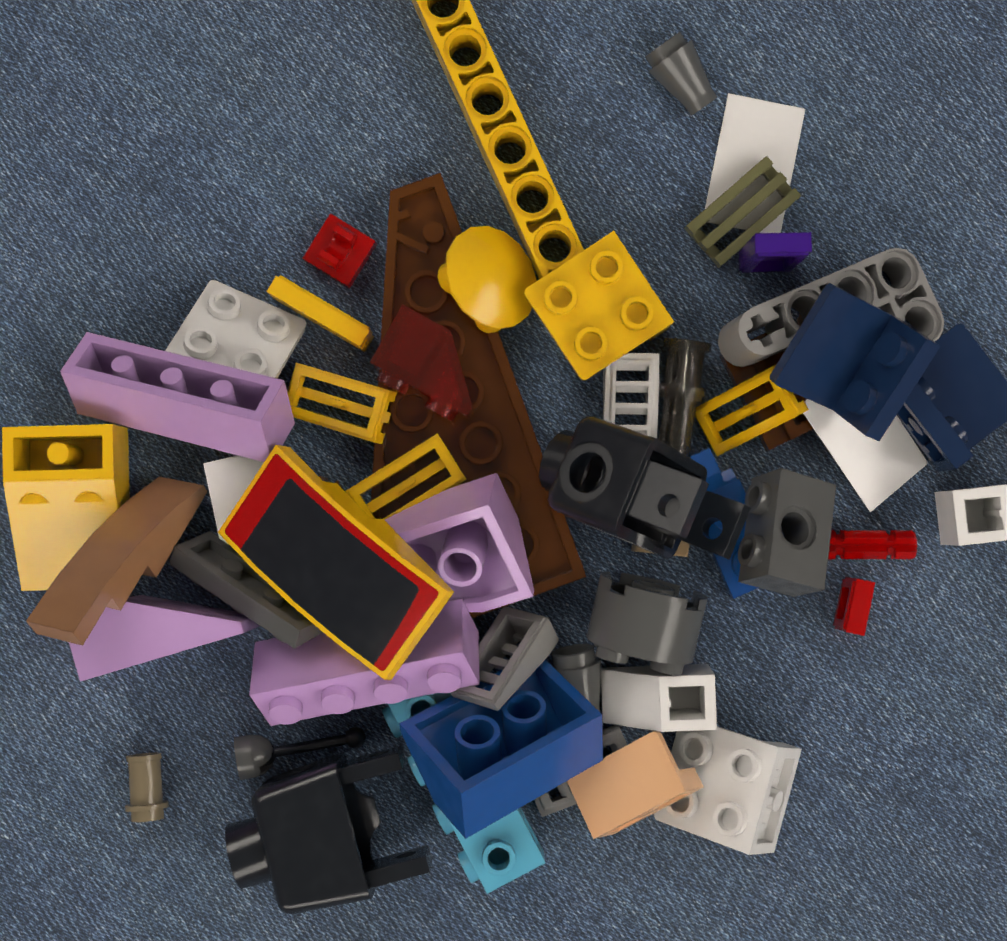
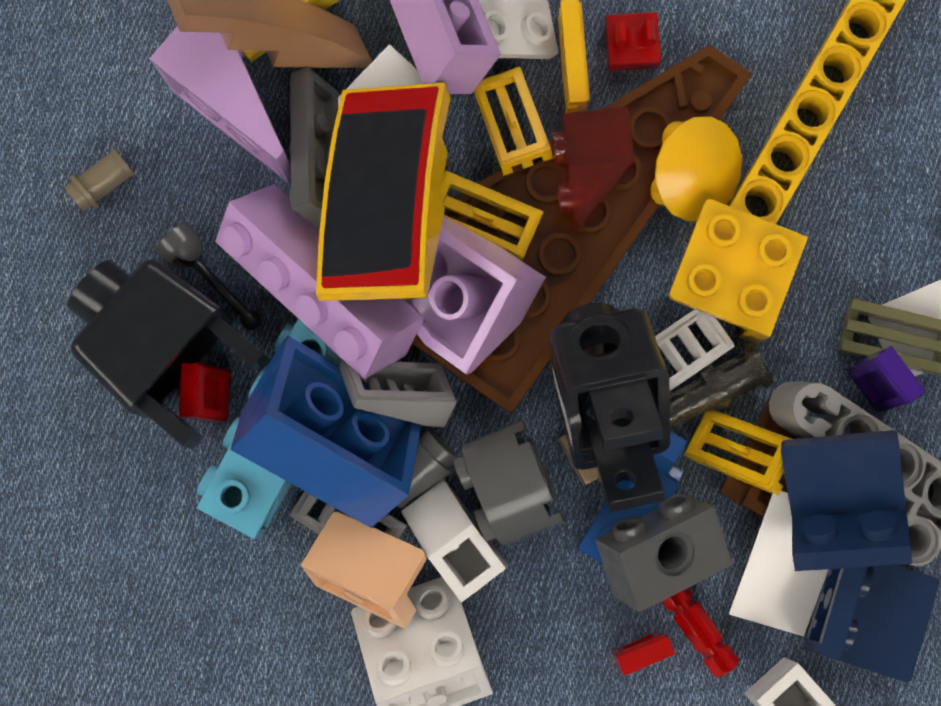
camera: 55 degrees right, 5 degrees down
(392, 820) = (204, 392): none -> red tile

